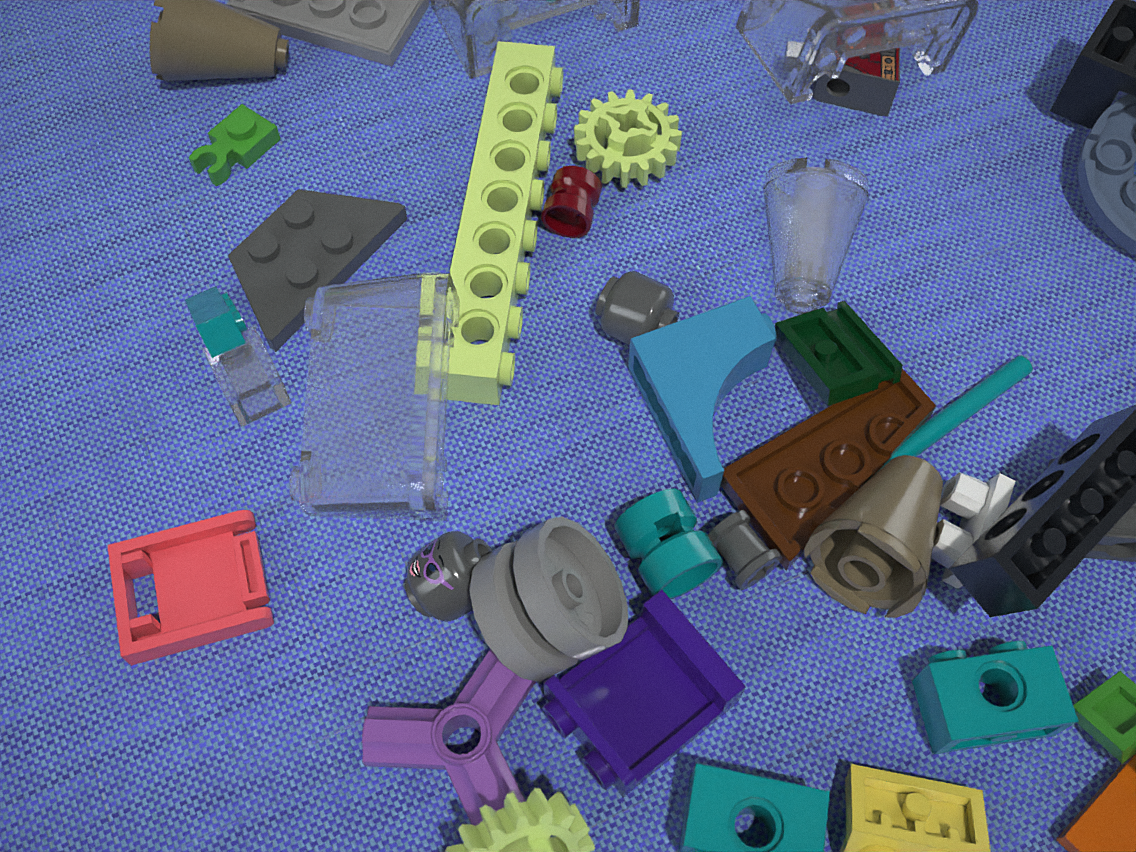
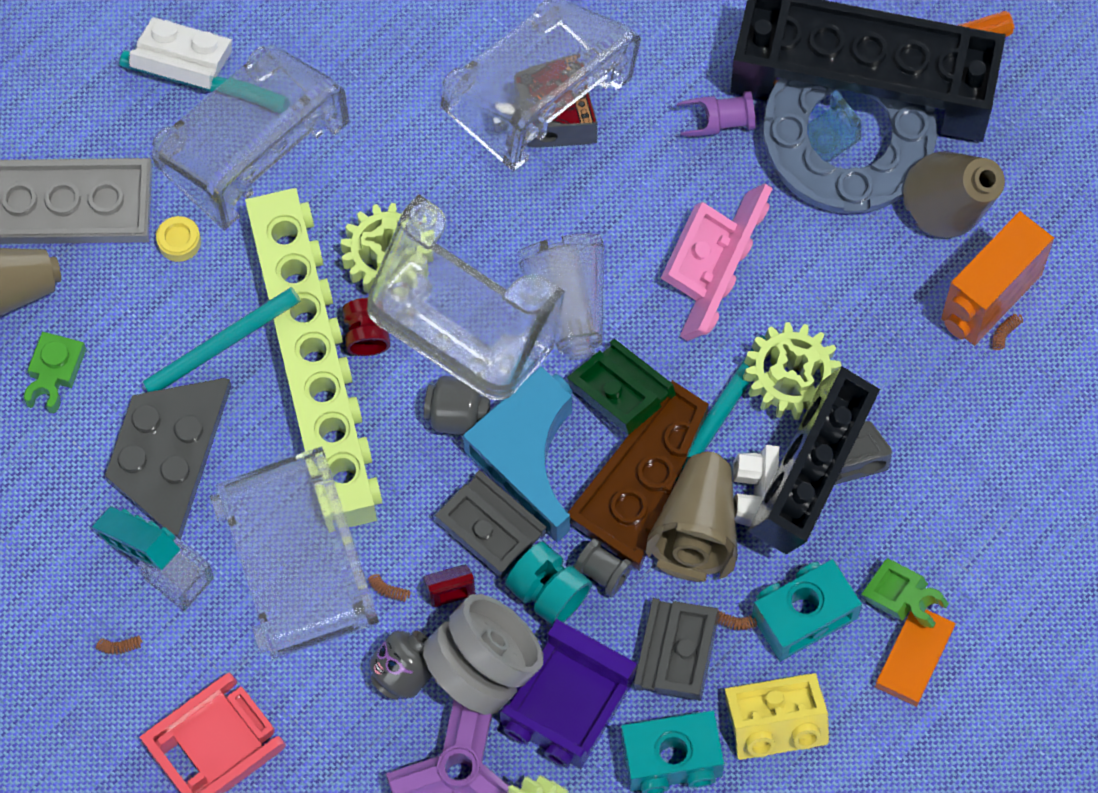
camera: 20 degrees left, 5 degrees up
(144, 434) = (106, 646): none -> nougat leg
(415, 161) = (222, 340): none -> teal bar
(420, 69) = (178, 238): none -> light yellow tile
(480, 490) = (384, 588): none -> nougat leg
(546, 502) = (449, 585): none -> dark red slope
(625, 450) = (490, 524): none -> dark grey plate
(683, 201) = (457, 313): none -> clear windscreen
(803, 687) = (677, 649): none -> dark grey plate
(887, 678) = (738, 622): none -> nougat leg
(982, 252) = (709, 254): none -> bright pink bracket
(1036, 122) = (723, 113): none -> medium lavender piece
(1049, 401) = (795, 352): none -> yellowish green gear

